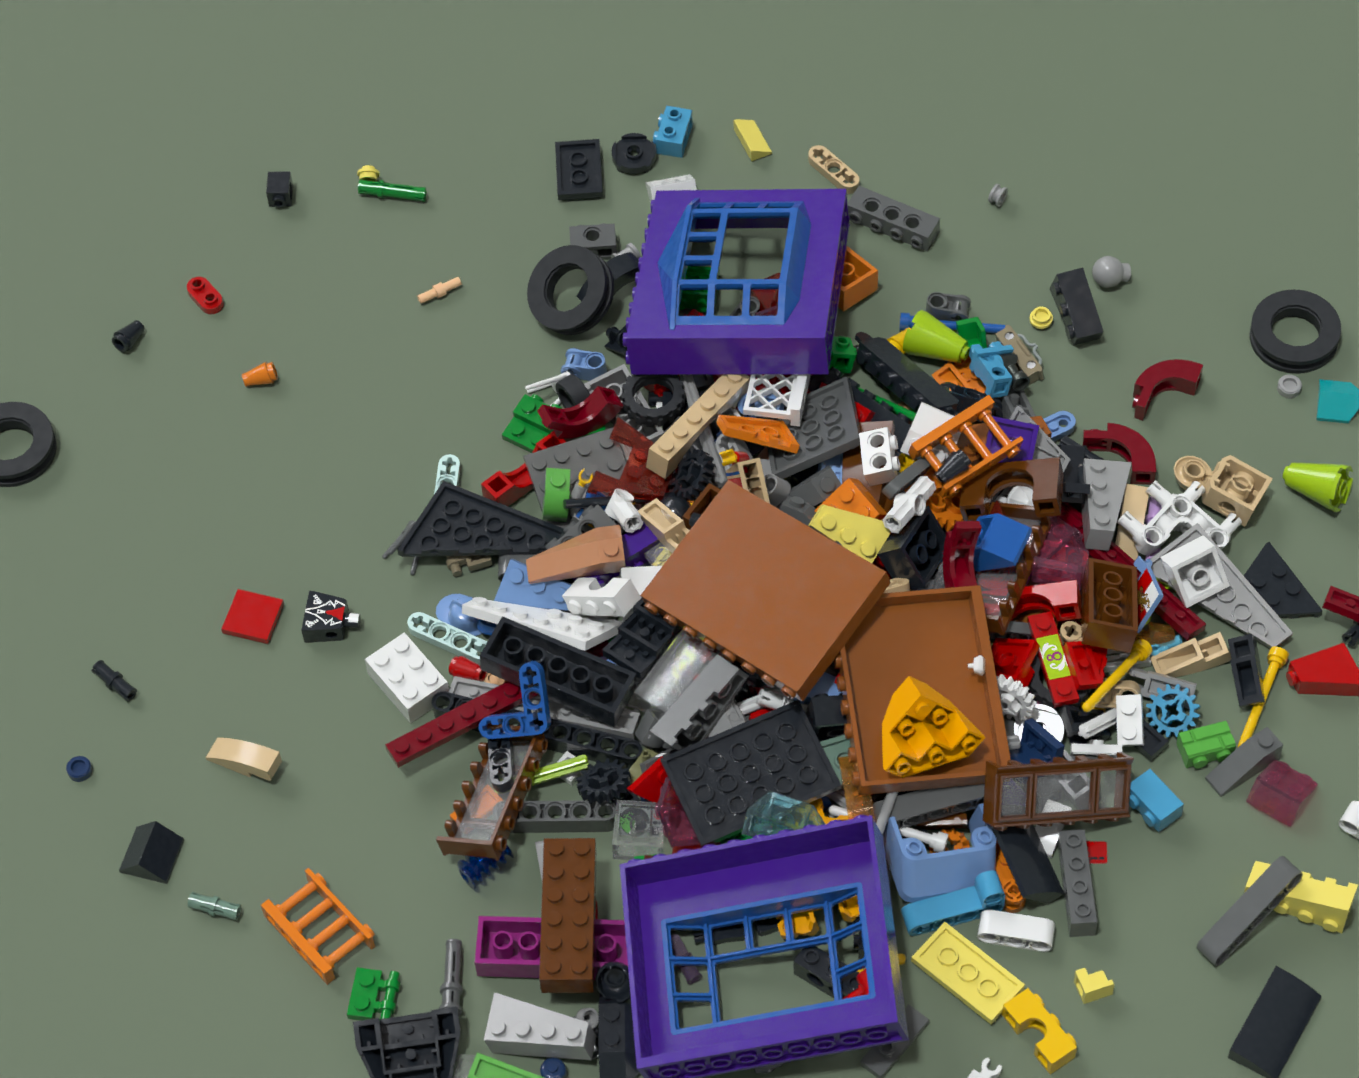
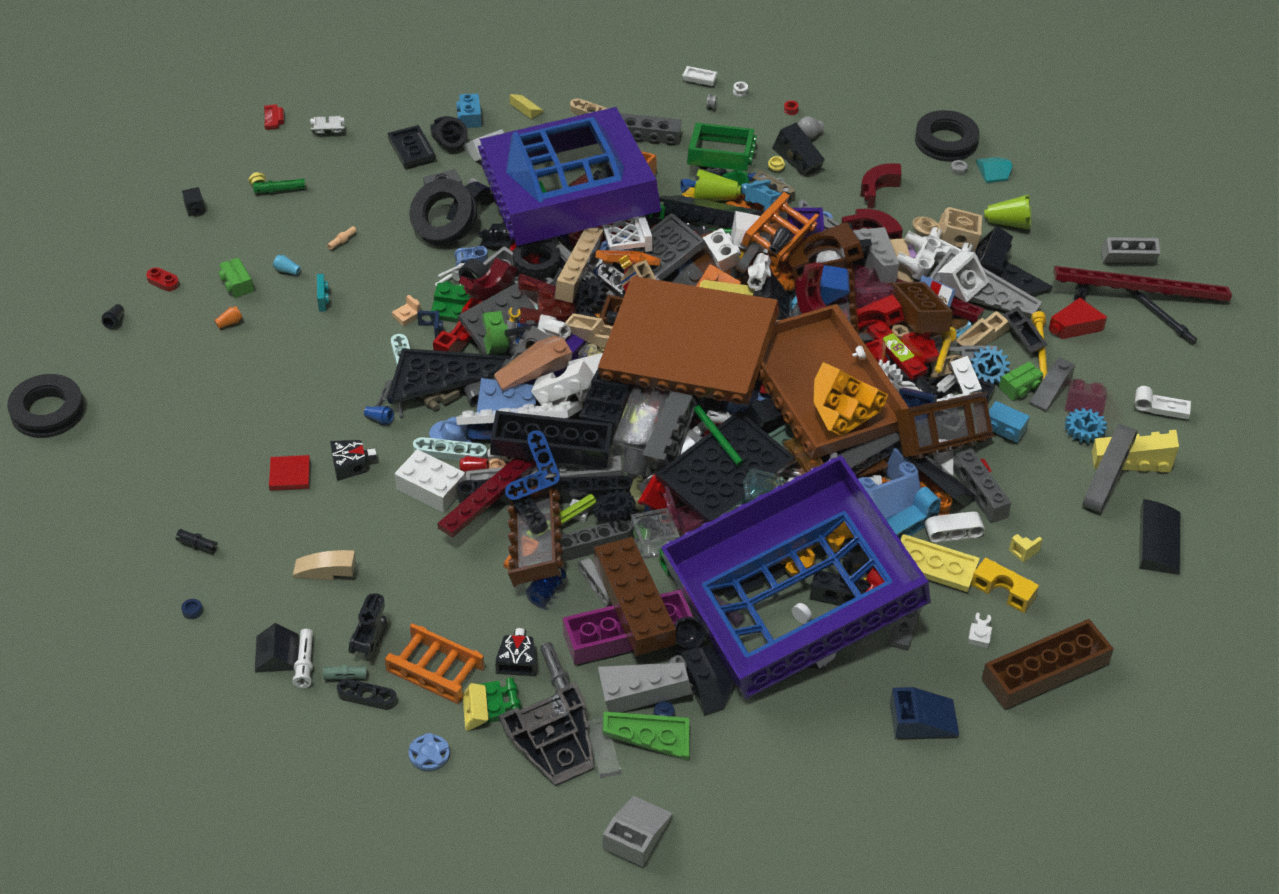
camera: 25 degrees left, 10 degrees down
(173, 882) = (306, 637): none -> white pin
(232, 951) = (360, 687): none -> black beam
(260, 860) = (370, 626): none -> black piece
(270, 1036) = (429, 752): none -> medium blue wheel
(289, 317) = (236, 277): none -> bright green brick
(341, 995) = (475, 706): none -> light yellow slope
(355, 314) = (285, 265): none -> medium azure cone
(381, 373) = (322, 296): none -> teal plate
(387, 565) = (381, 414): none -> blue cone
(414, 943) = (516, 655): none -> black torso
(426, 77) = (273, 116): none -> red piece
(476, 424) = (407, 312): none -> light nougat bracket
(477, 109) = (321, 126): none -> white hinge
(505, 452) = (436, 322): none -> dark blue bracket
(648, 160) = (456, 122): none -> black tyre
(755, 729) = (718, 435): none -> green bar
(771, 992) = (801, 613): none -> white tile
(961, 300) = (719, 158): none -> green window
(1001, 147) = (699, 76): none -> white plate
(1048, 176) = (740, 89): none -> white bush
(1104, 236) = (791, 107): none -> red bush
(1255, 825) = (1094, 427): none -> dark azure gear
(1259, 539) = (993, 249): none -> black slope

